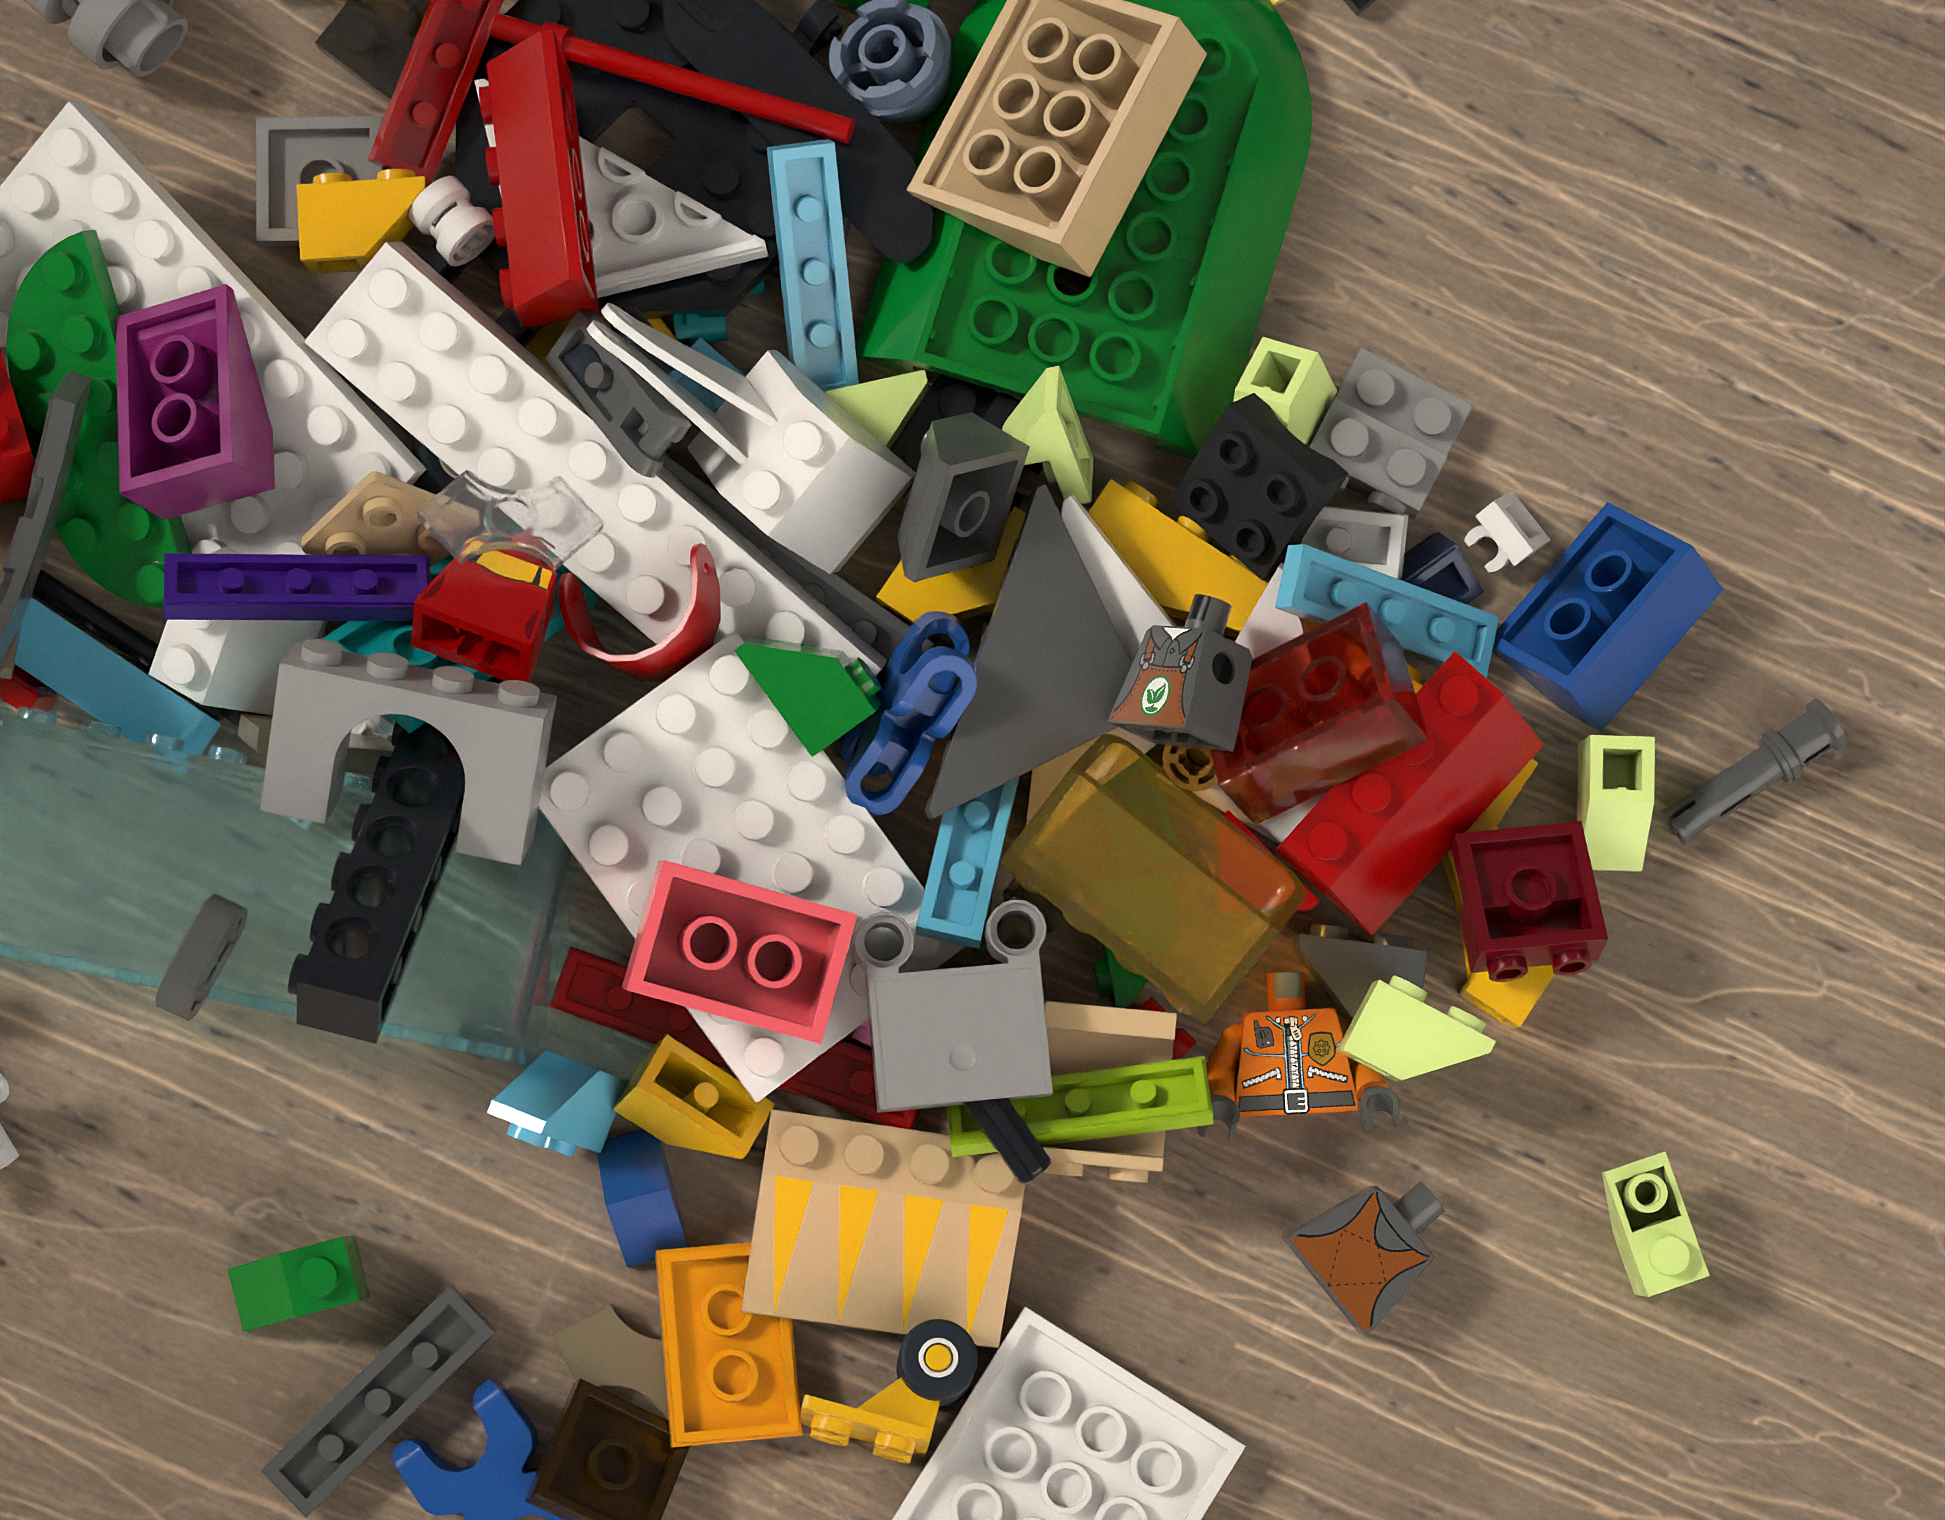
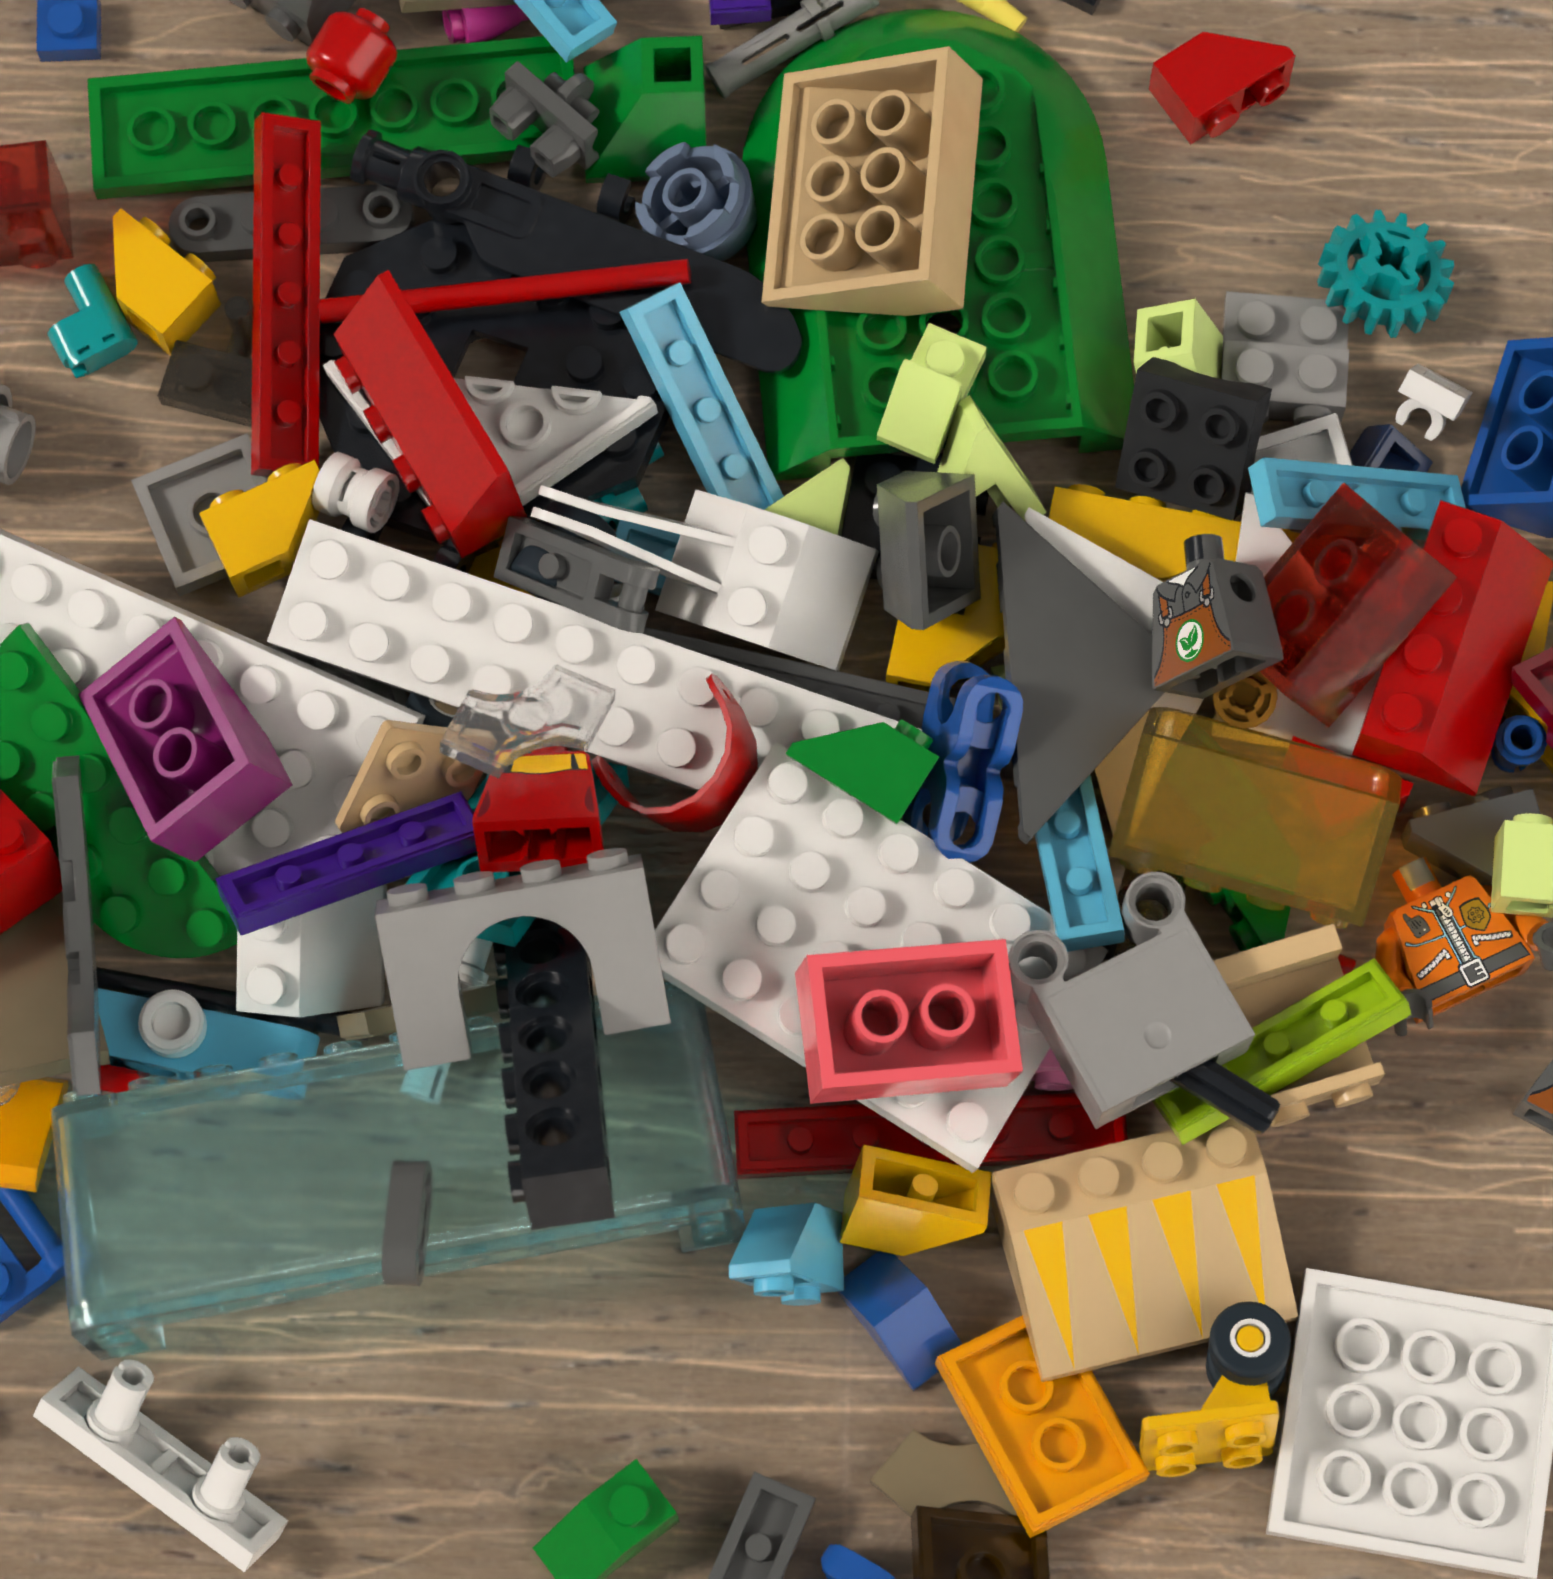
camera: 15 degrees left, 10 degrees down
(86, 662) = (172, 1024): none -> white tile
(1026, 344) = (929, 392): none -> yellowish green slope
(1444, 133) = (1216, 79): none -> red slope
(1452, 904) = (1528, 734): none -> blue pin
(1513, 398) = (1385, 273): none -> teal gear

